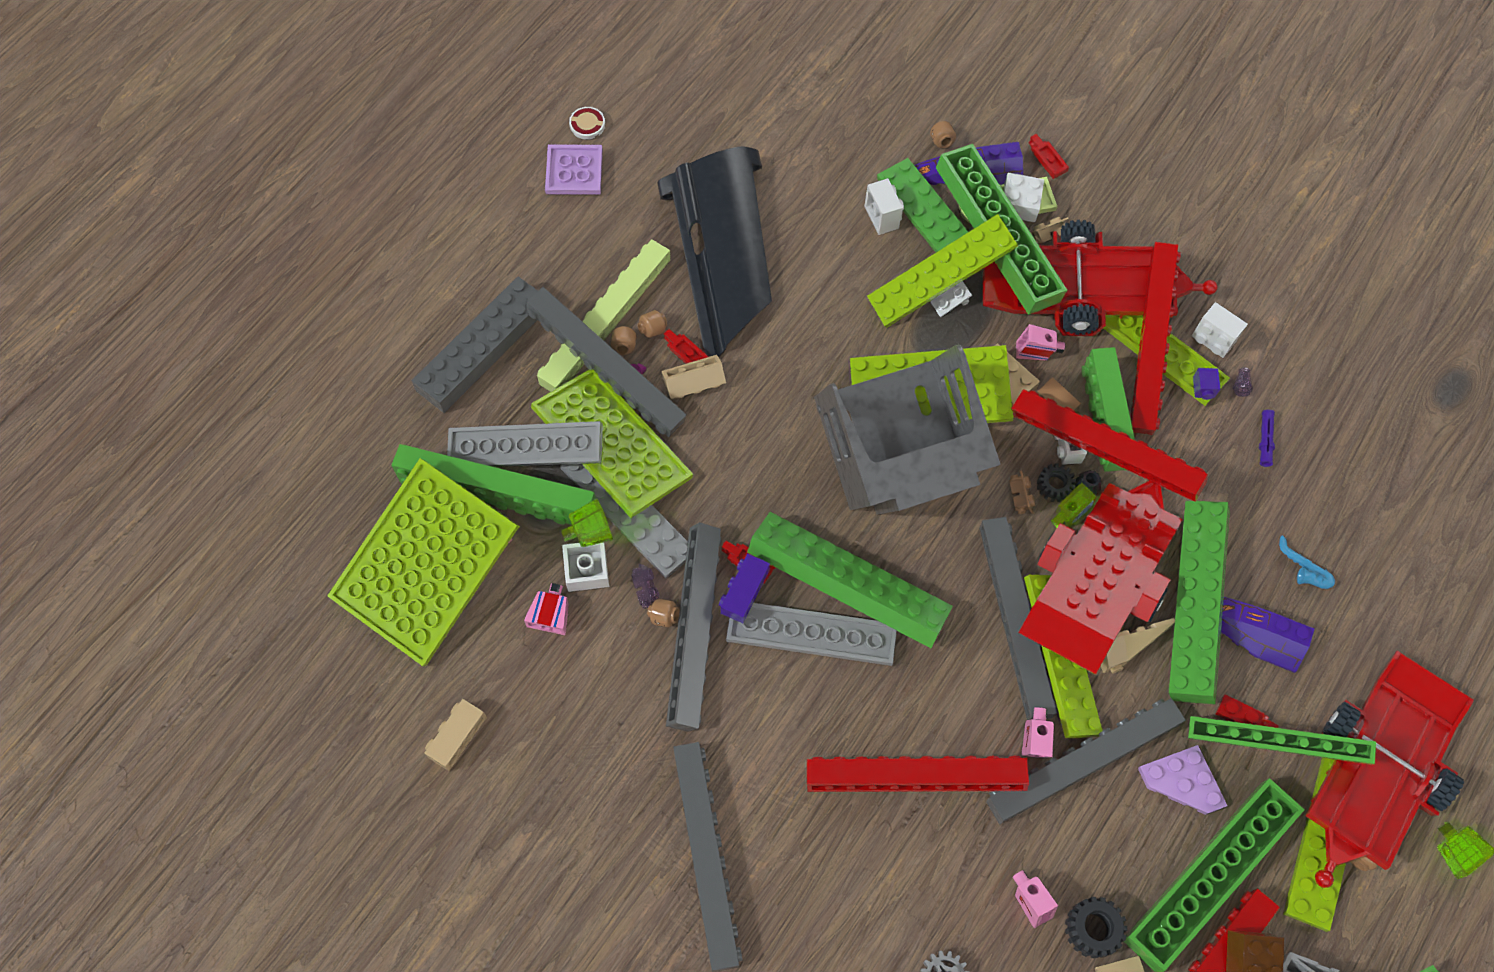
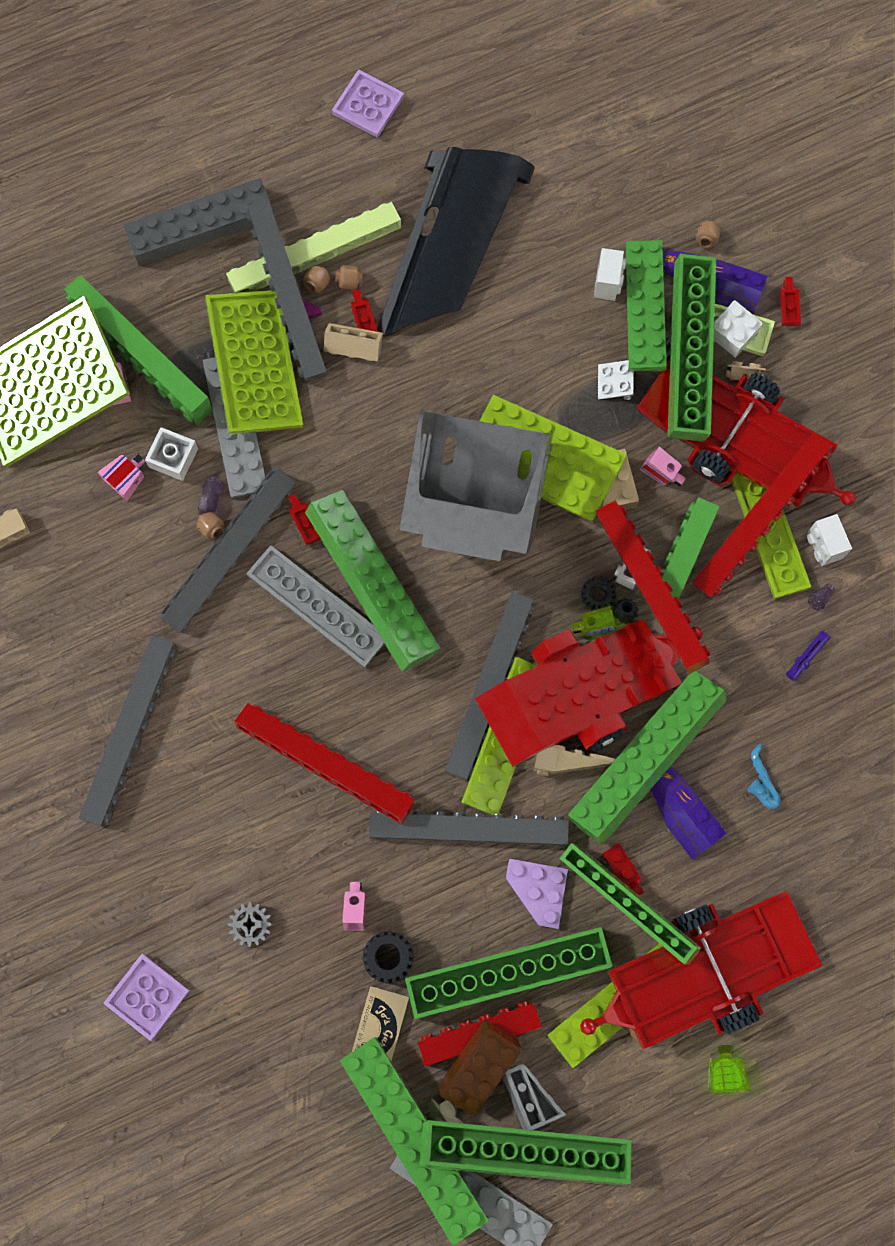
camera: 30 degrees right, 10 degrees up
(528, 444) = (181, 328): light grey plate -> none
(587, 122) = (405, 65): tile -> none
(588, 525) = (187, 422): clear neon green torso -> none
(744, 588) = (282, 541): dark purple brick -> none
(942, 271) = (617, 359): lime plate -> none
(1024, 500) = (568, 580): medium nougat hinge -> none
(1038, 744) = (433, 793): bright pink torso -> none
(1059, 394) = (648, 525): medium nougat hinge -> none
(1206, 383) = (783, 580): dark purple brick -> none

